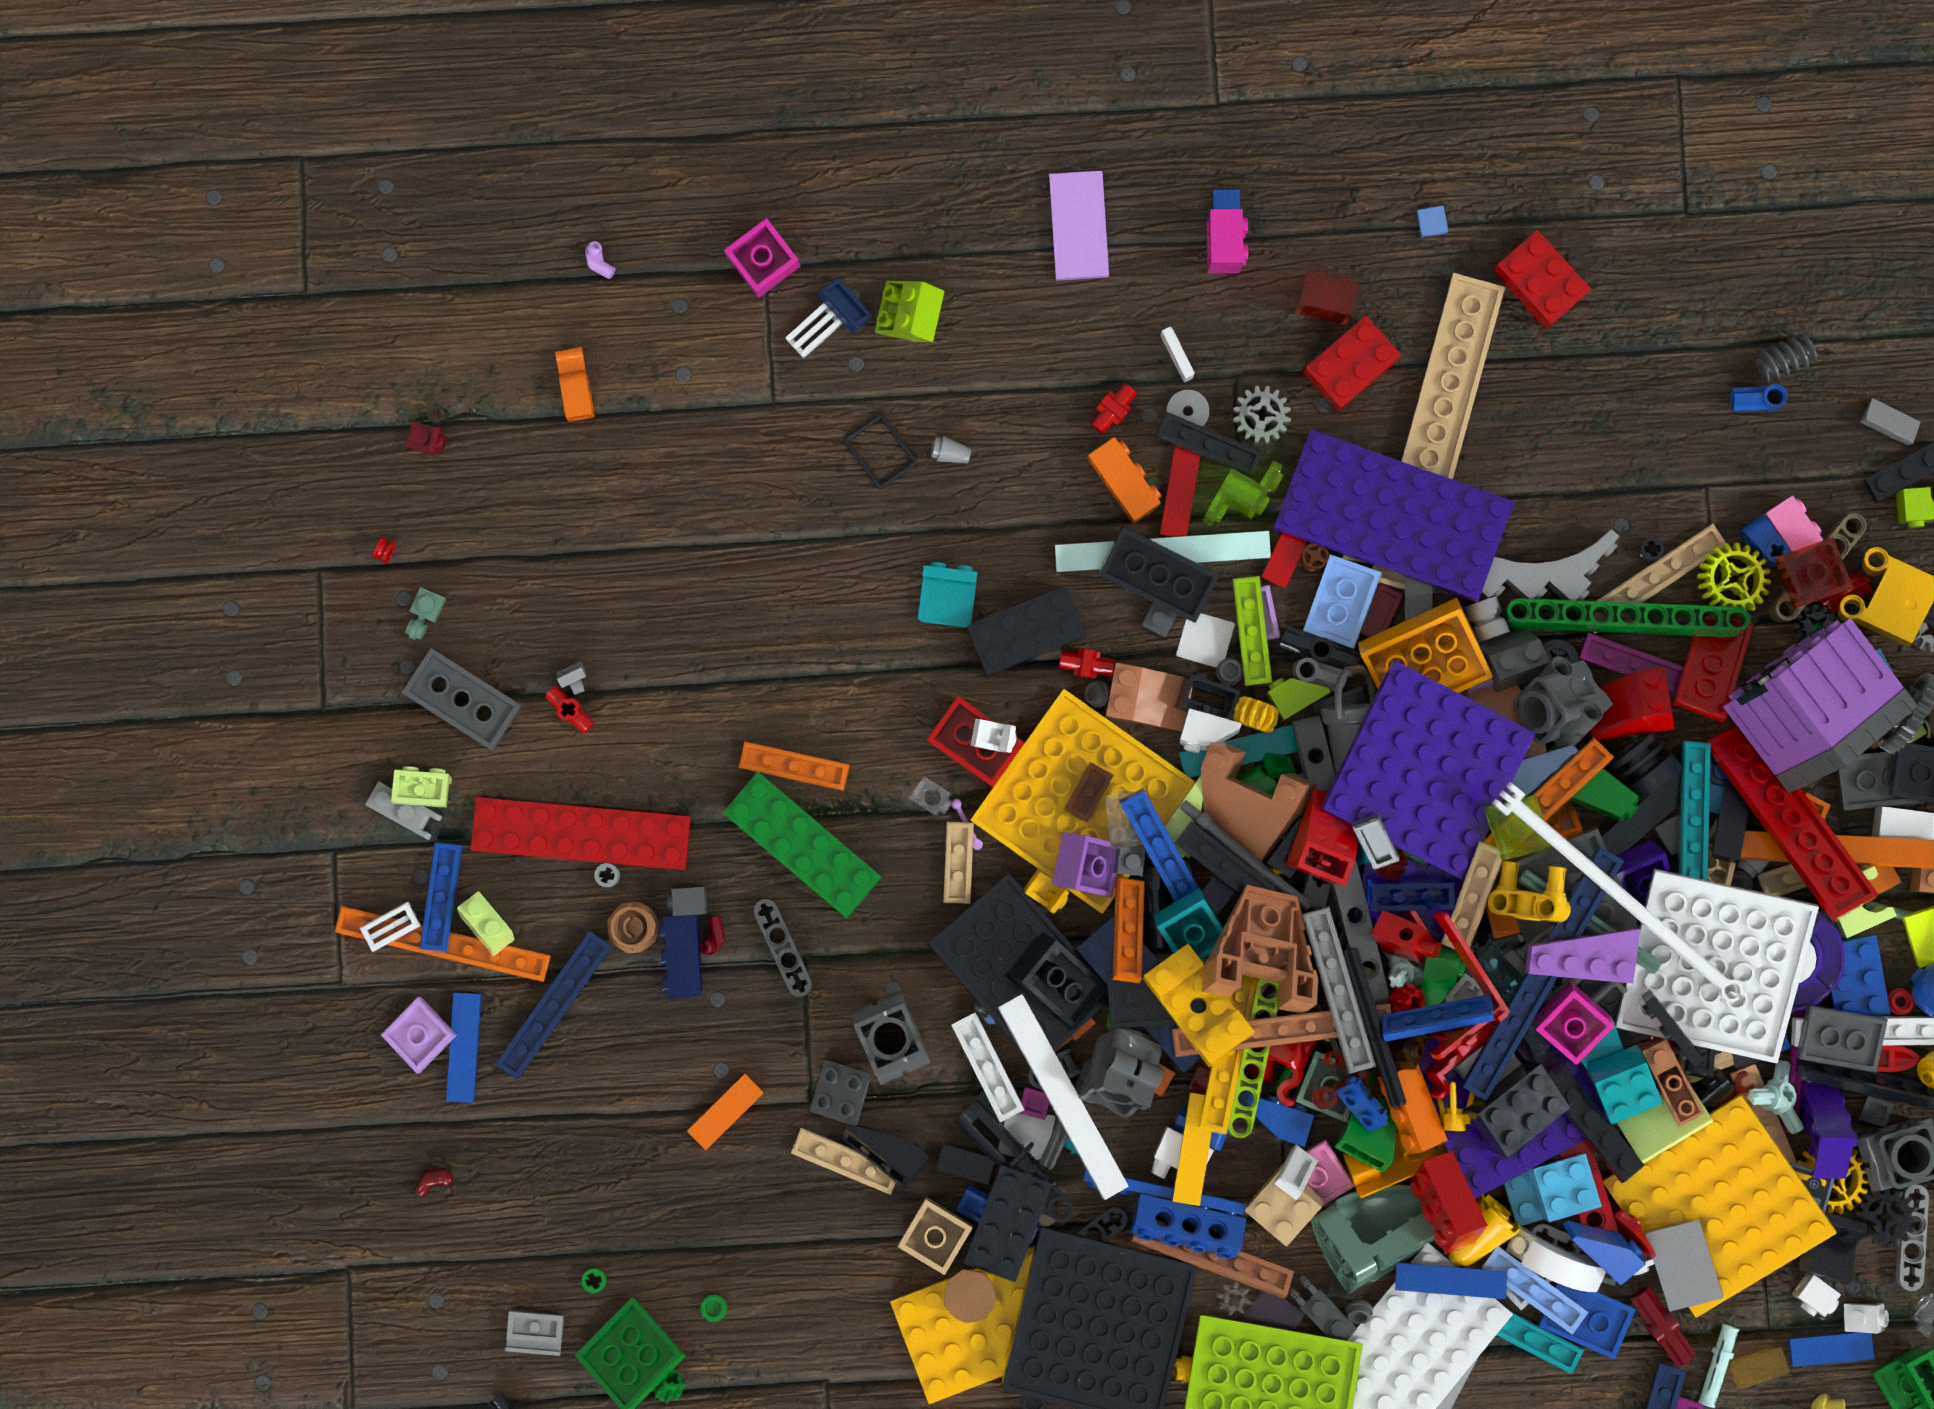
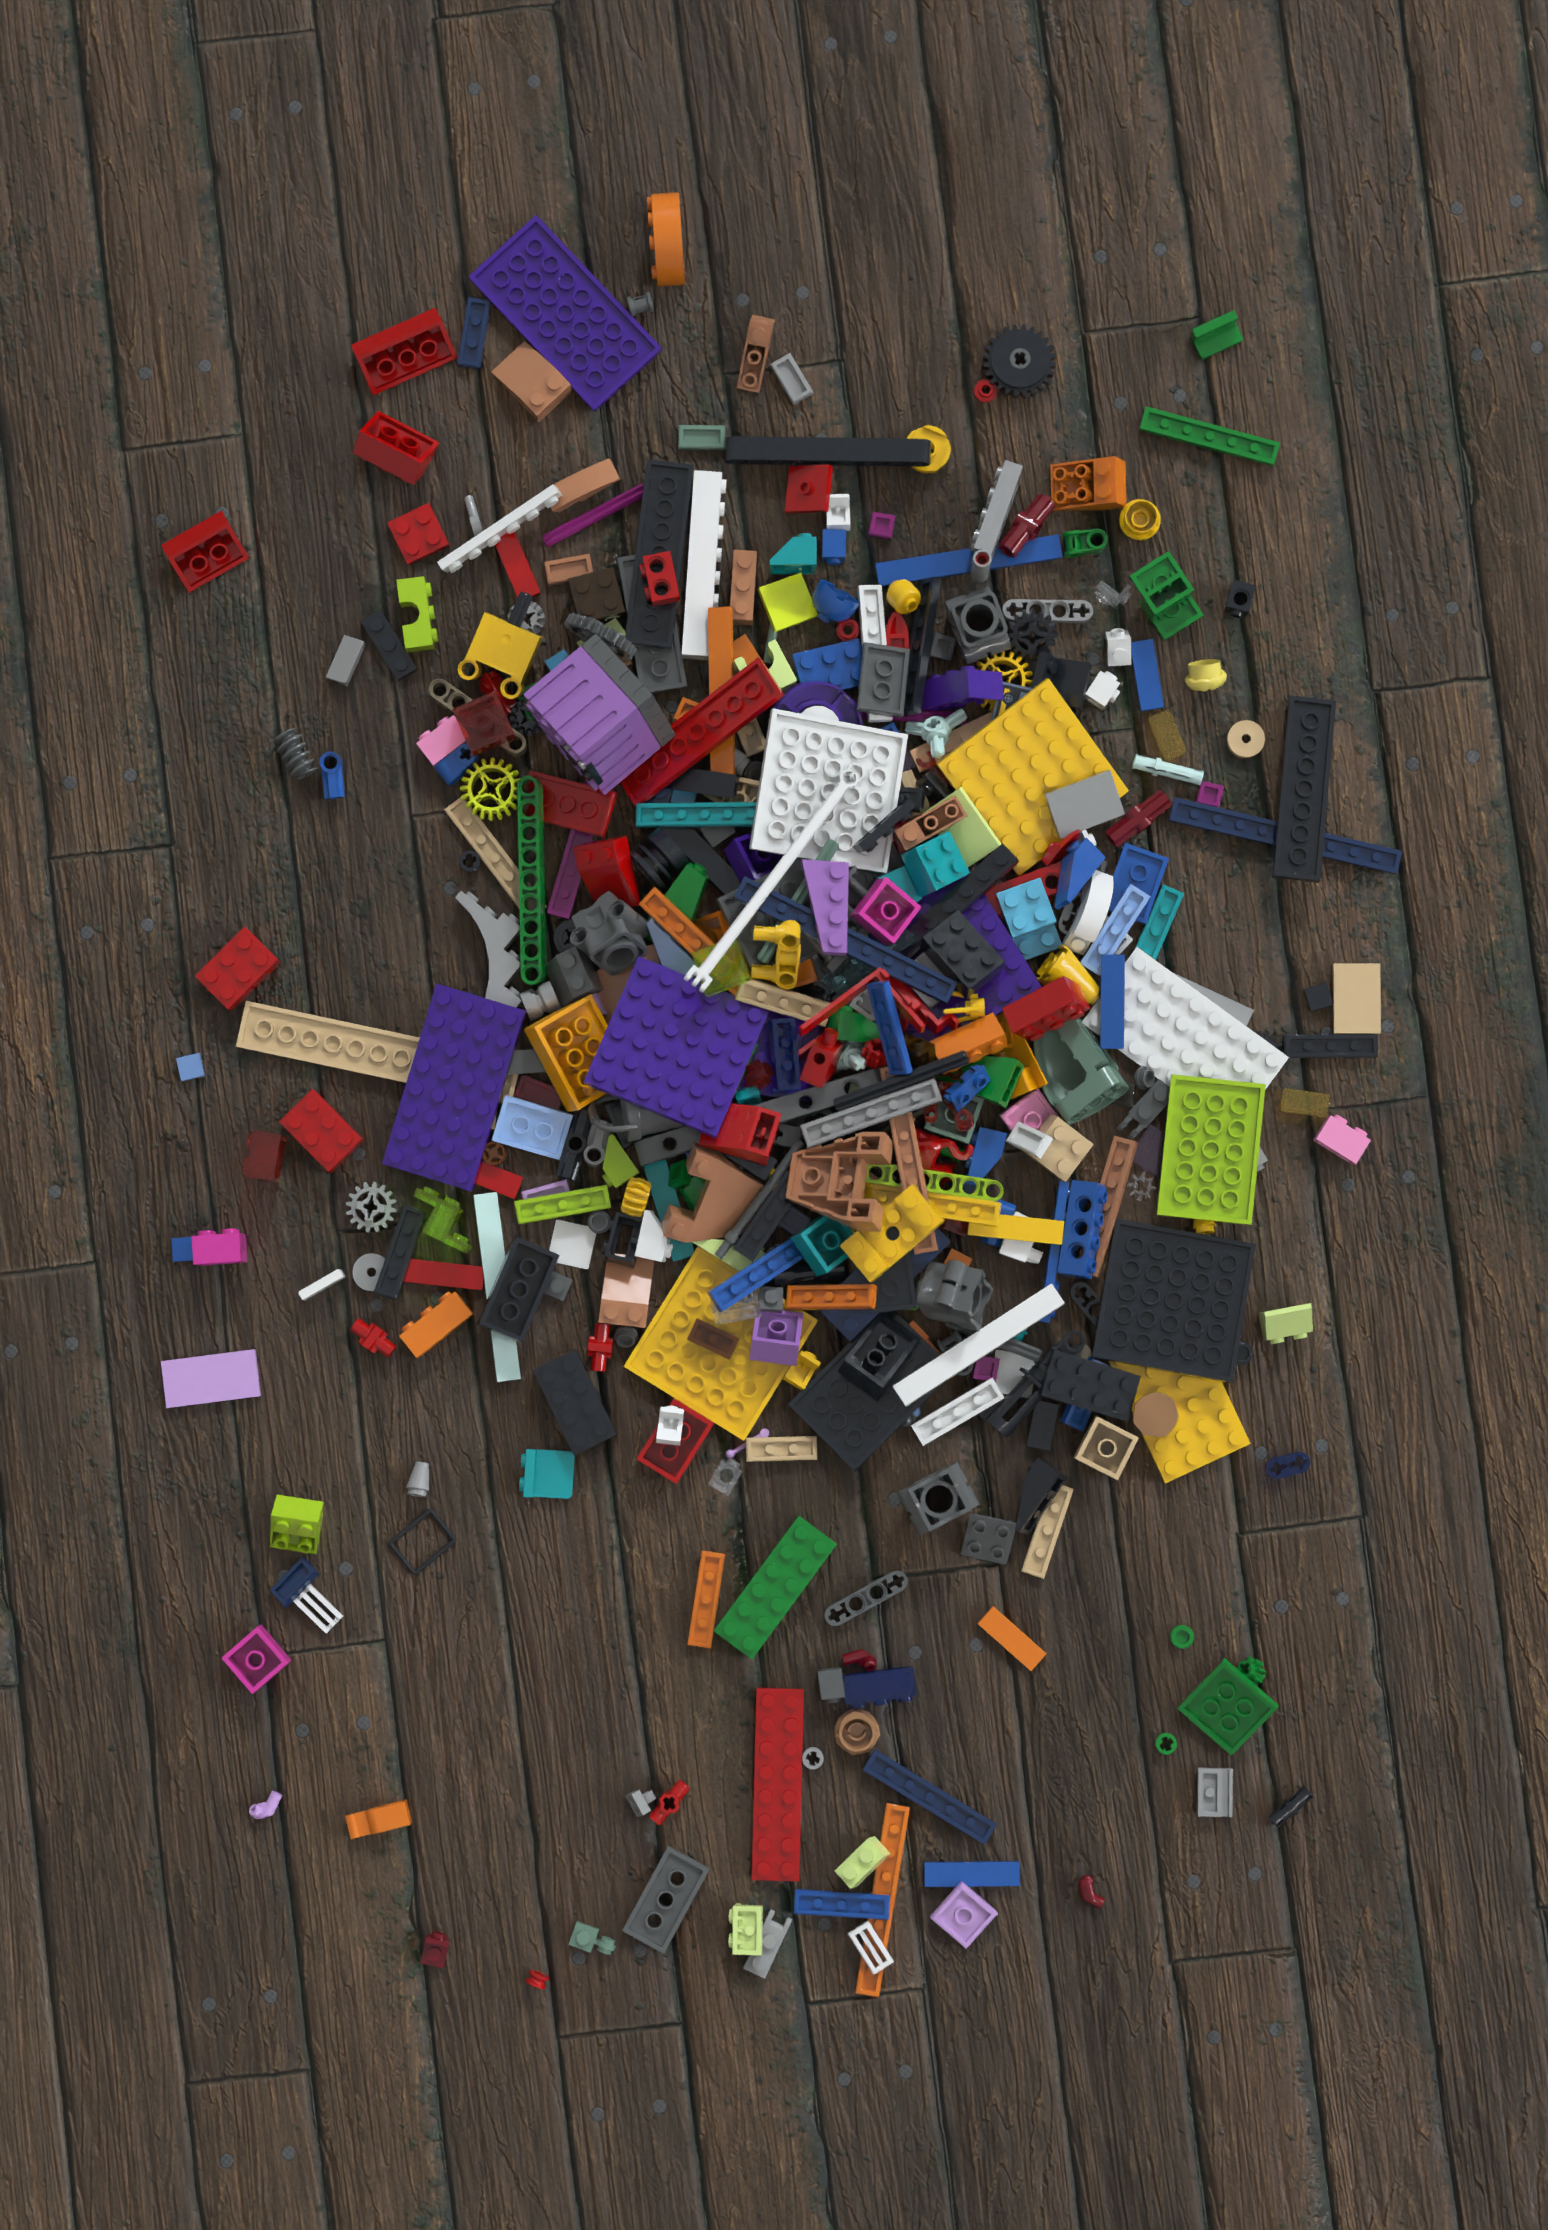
camera: 100 degrees left, 0 degrees up
(1375, 841) = (741, 1089): tile -> none

